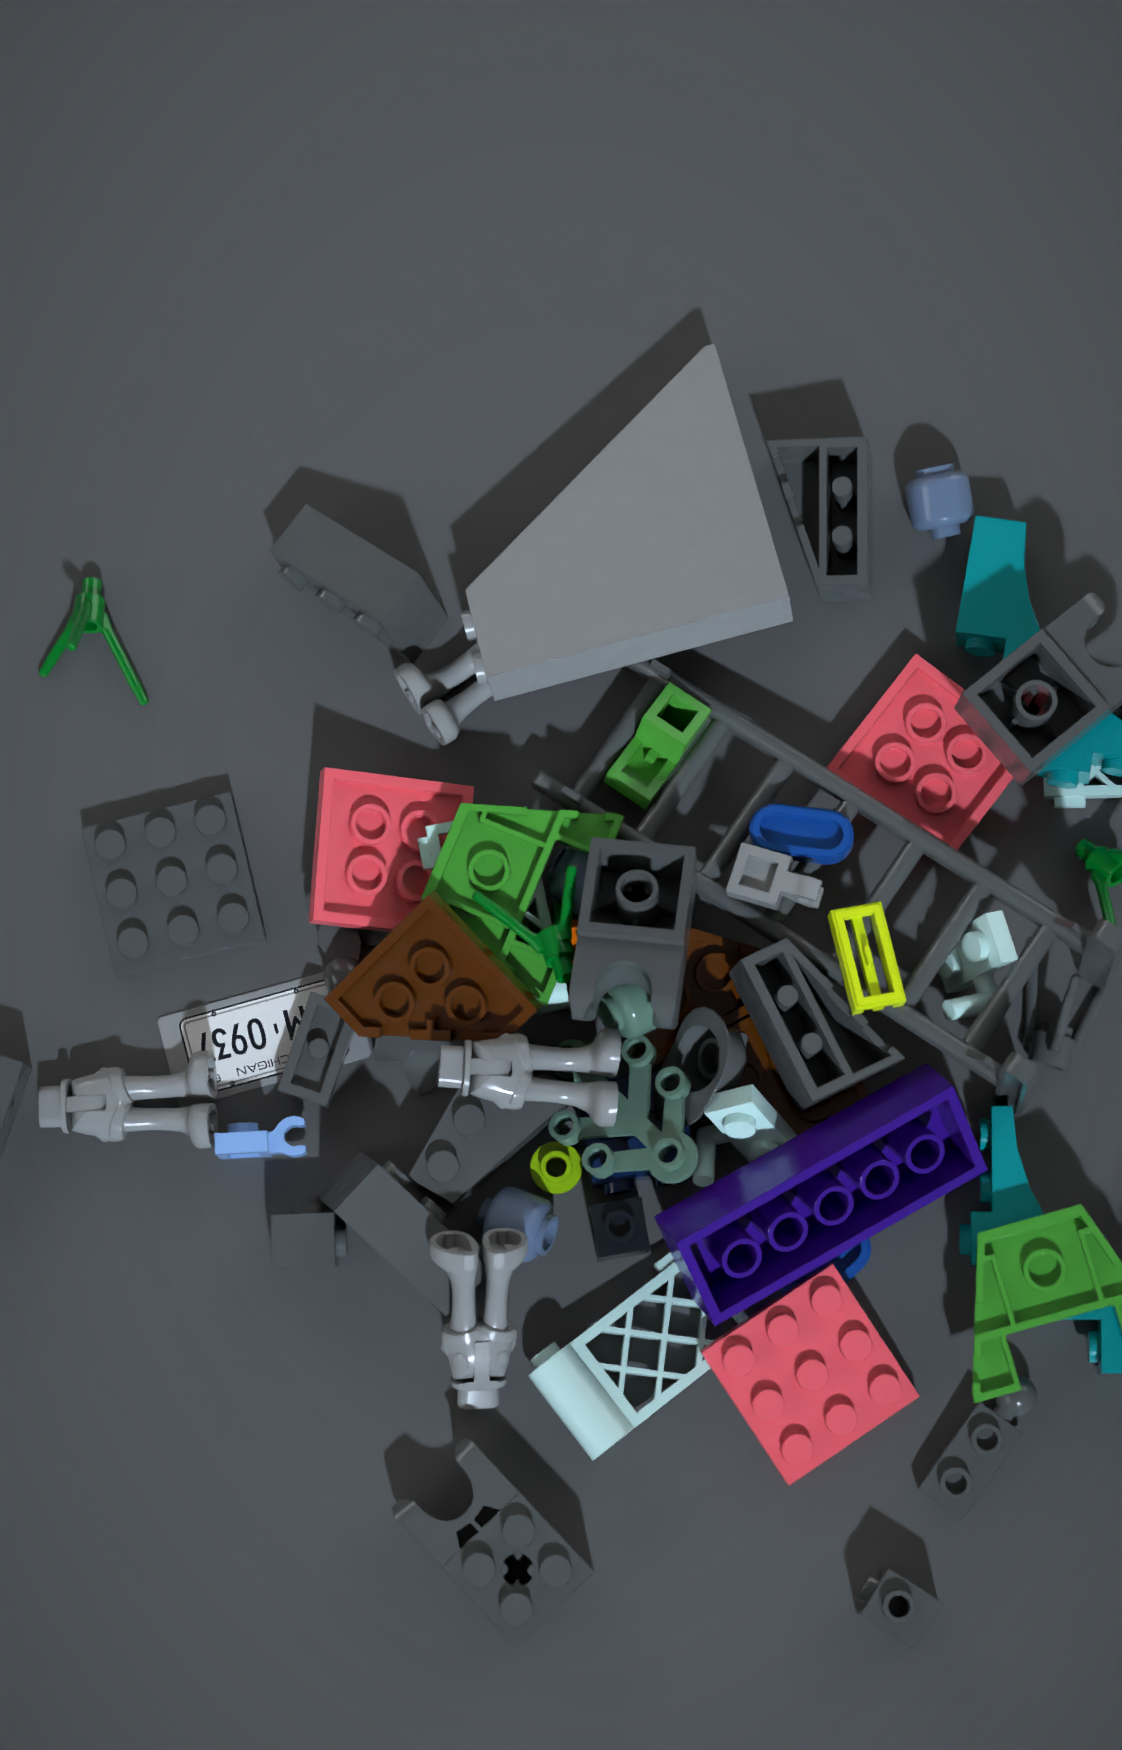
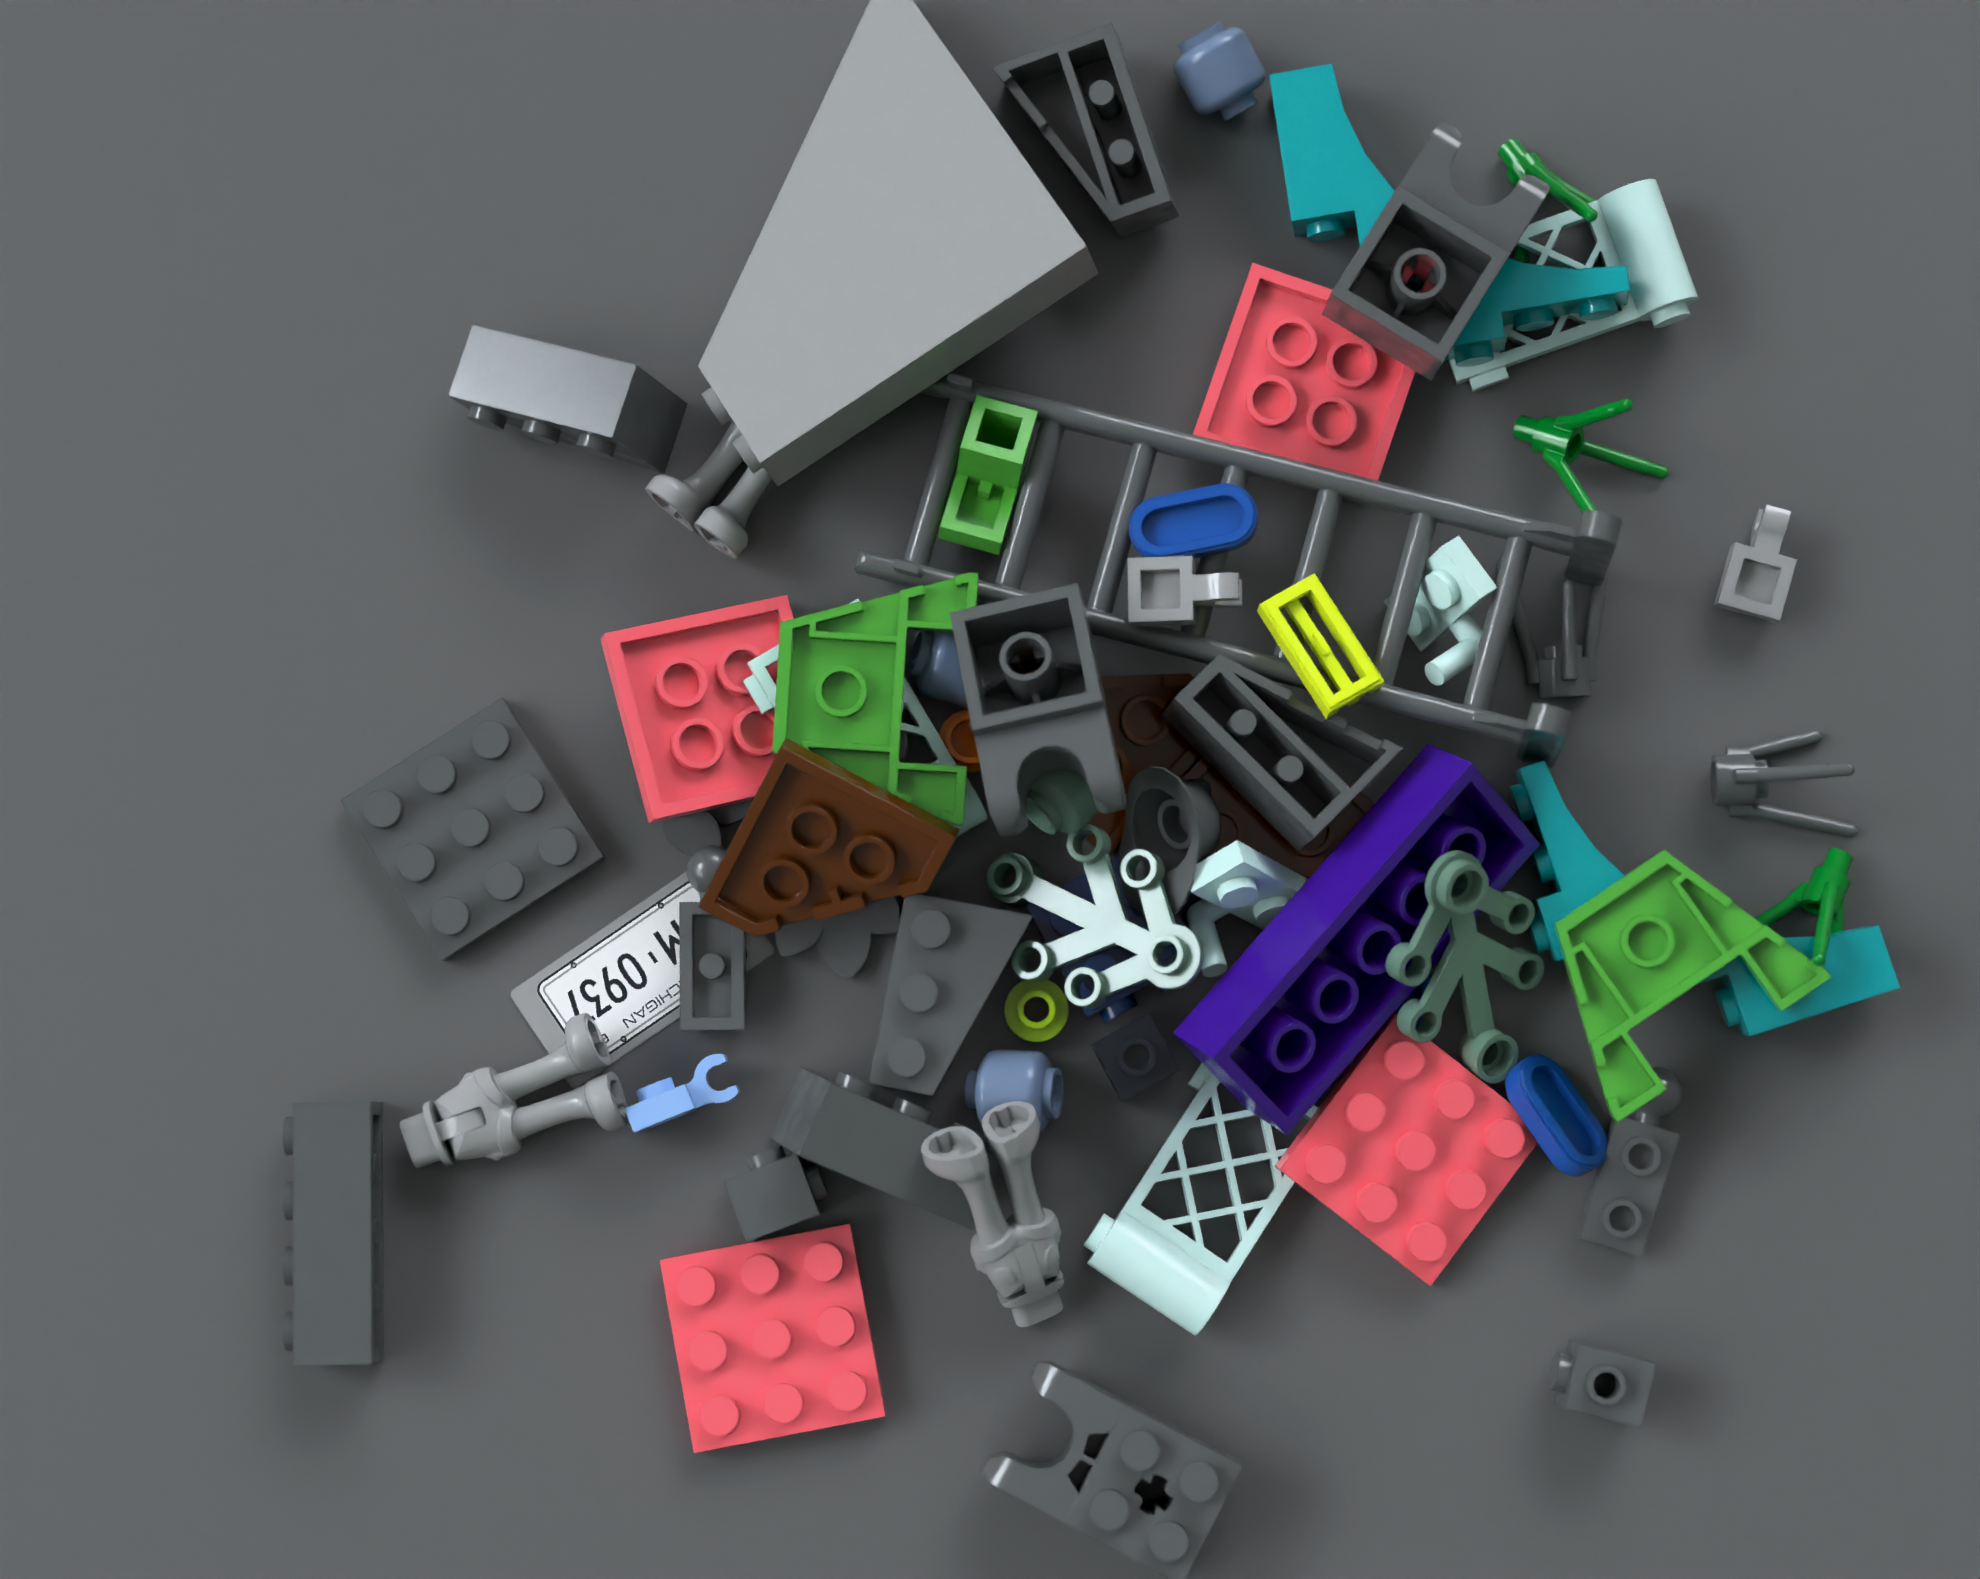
camera: 15 degrees left, 5 degrees up
(91, 618) = (263, 547): green plant -> none
(266, 1351) = (772, 1338): none -> coral plate
(504, 1068) = (939, 919): light grey piece -> none
(552, 941) = (944, 751): green plant -> none
(898, 1239) = (1454, 891): none -> sand green plant
(932, 1386) = (1556, 1115): none -> blue tile

